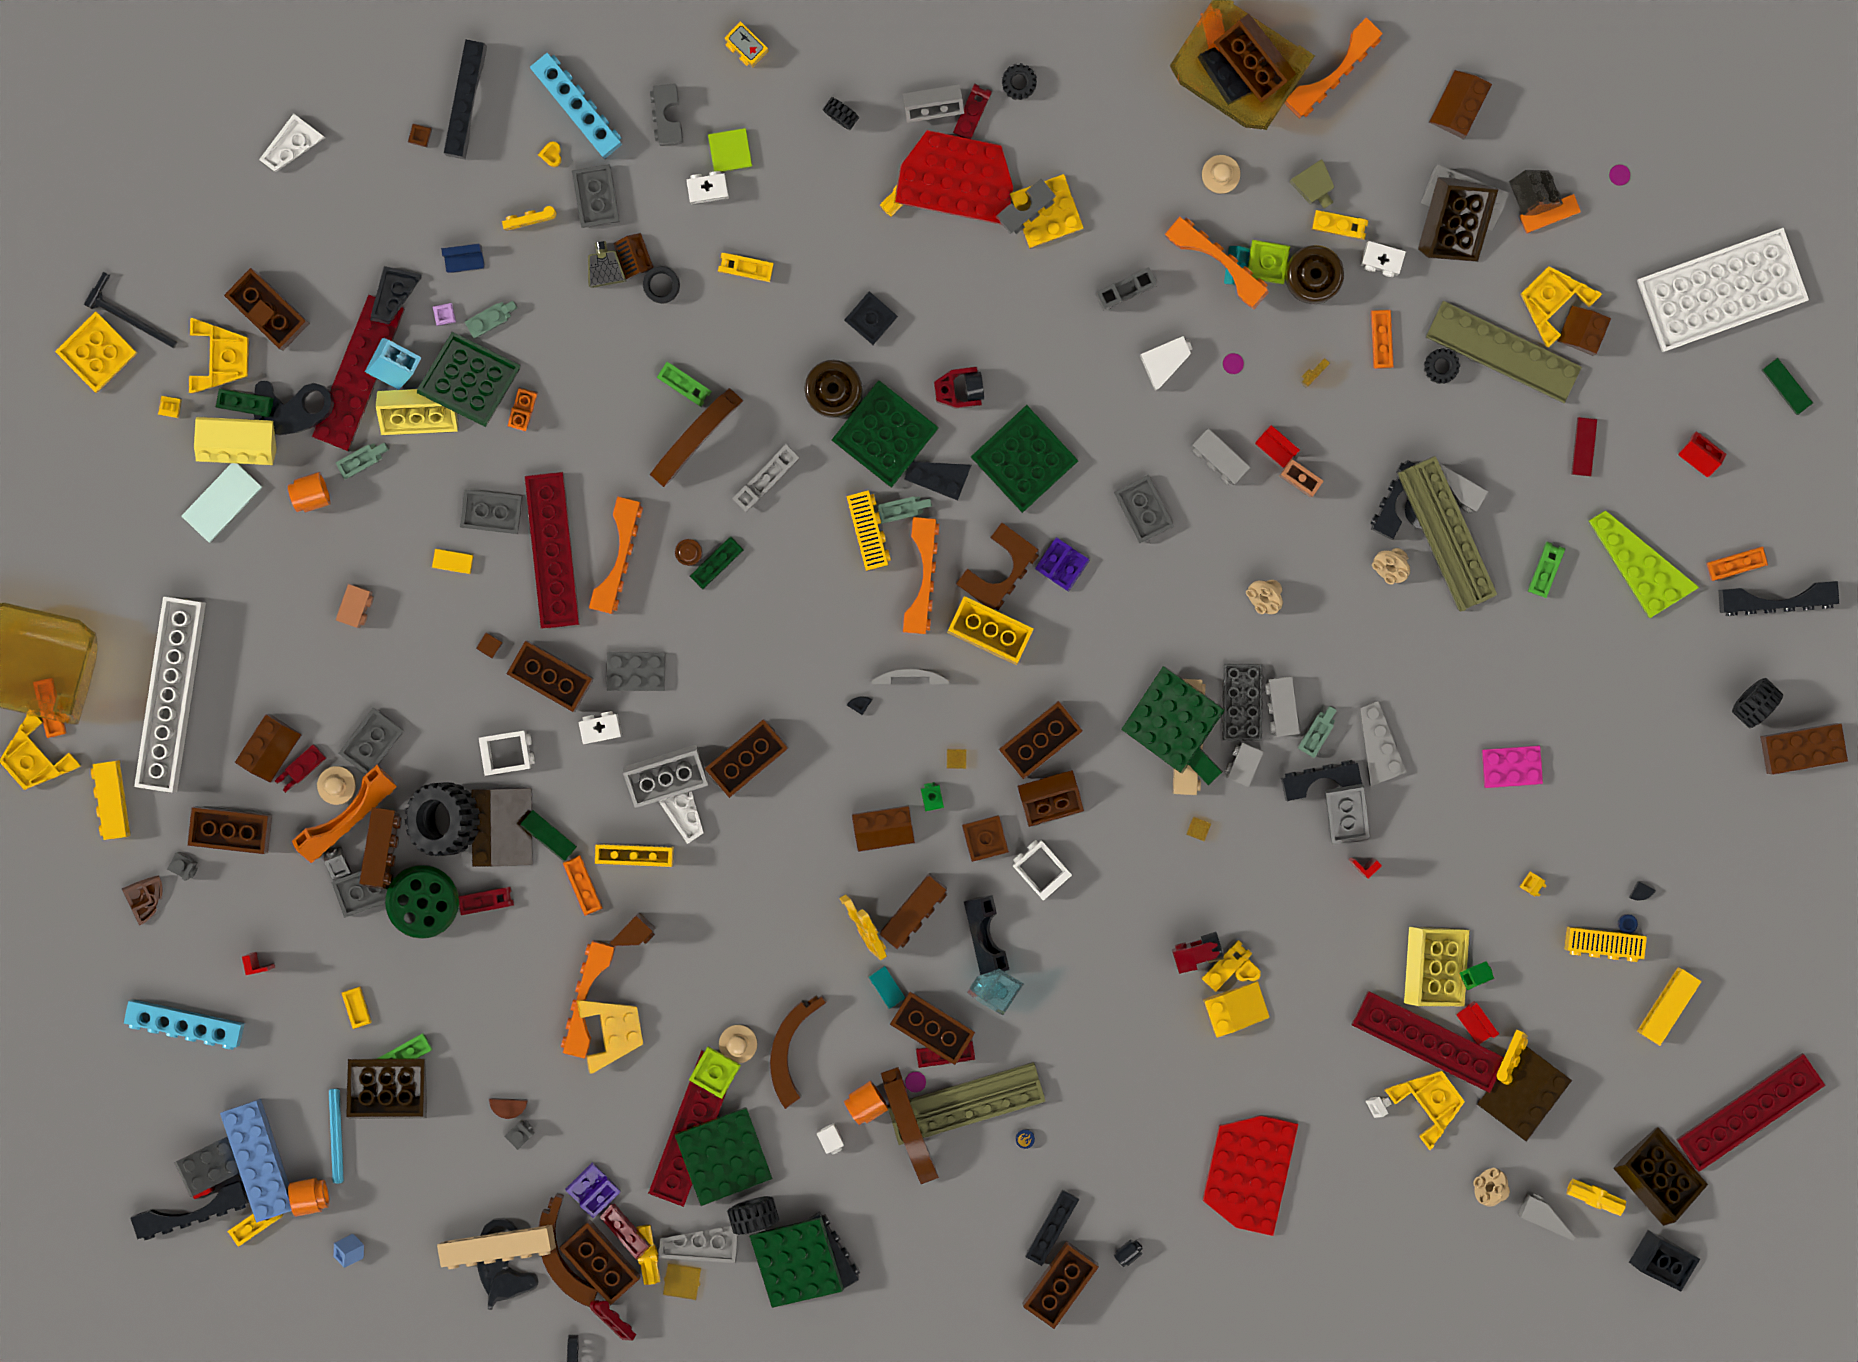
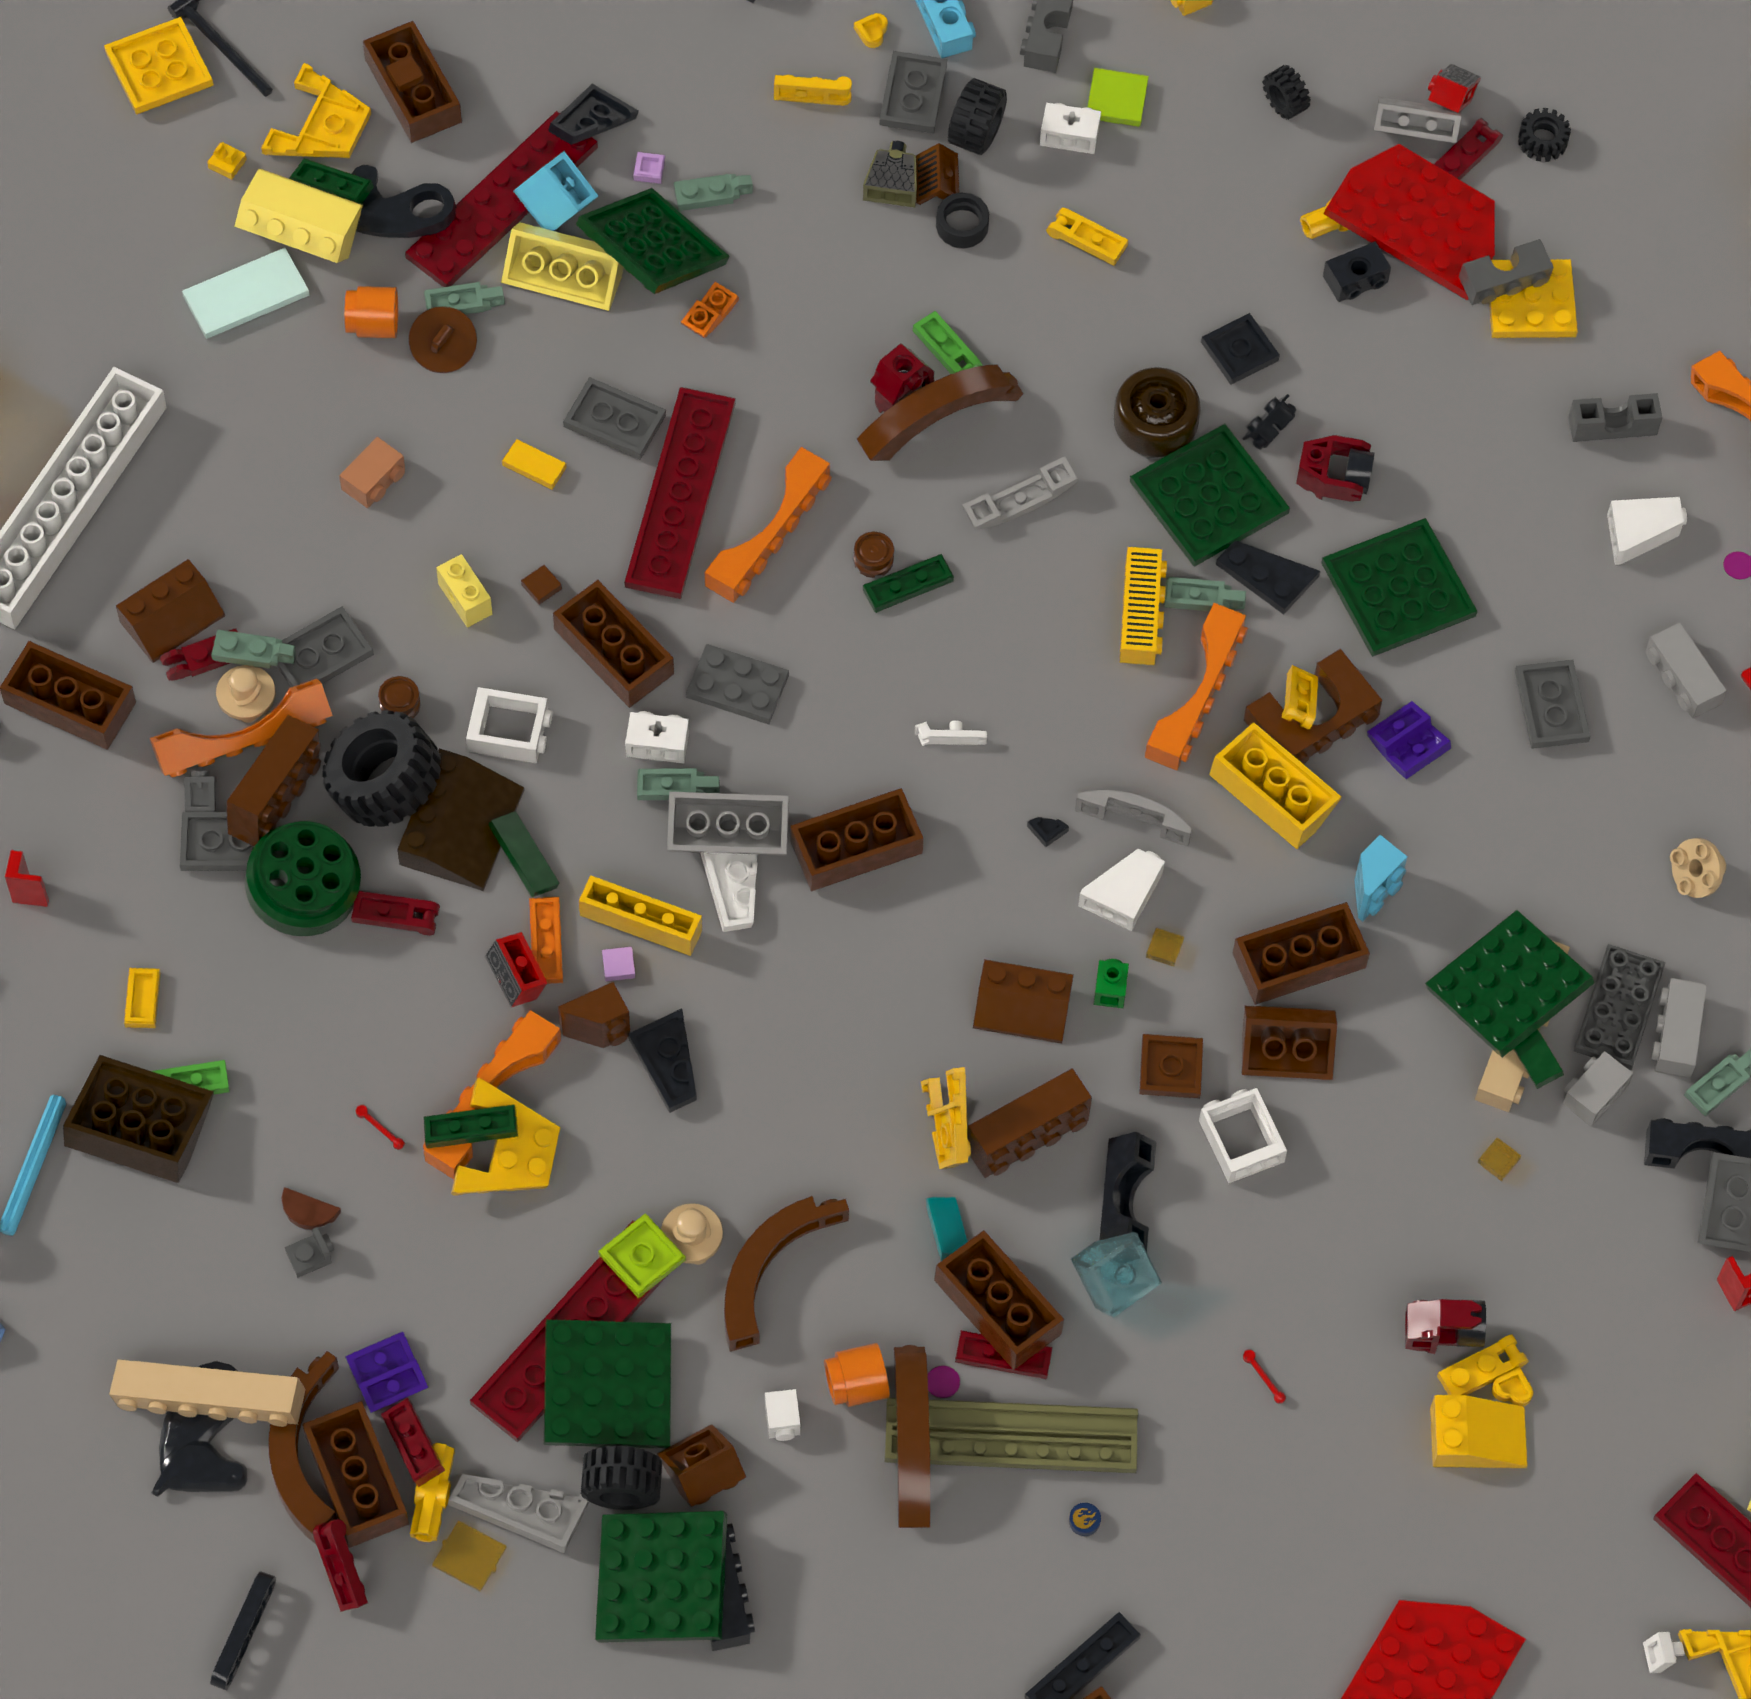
camera: 15 degrees right, 25 degrees down
(328, 760) = (251, 649): none -> sand green hinge
(360, 492) = (442, 339): none -> reddish brown shield
(432, 757) = (400, 695): none -> reddish brown wheel
(443, 670) = (464, 590): none -> light yellow brick
(463, 258) = (703, 107): dark blue panel -> none
(515, 1033) = (362, 1112): none -> red hinge
(573, 916) = (516, 969): none -> red brick
(585, 1031) = (470, 1126): none -> dark green tile
(622, 756) = (657, 783): none -> sand green hinge
(632, 886) = (618, 964): none -> lavender tile
(645, 208) = (977, 116): none -> black tyre
(665, 428) = (895, 385): none -> dark red piece
(683, 939) = (666, 1058): none -> black wing
(781, 660) = (953, 736): none -> white piece
(794, 1185) = (702, 1465): none -> reddish brown slope
(902, 373) = (1276, 413): none -> black hinge
(921, 730) = (1124, 889): none -> white slope
(931, 223) = (1366, 260): none -> black brick
(950, 72) = (1453, 88): none -> red brick
(987, 565) = (1301, 697): none -> yellow plate
(1070, 673) = (1377, 876): none -> medium azure slope
(1113, 1024) = (1249, 1357): none -> red hinge

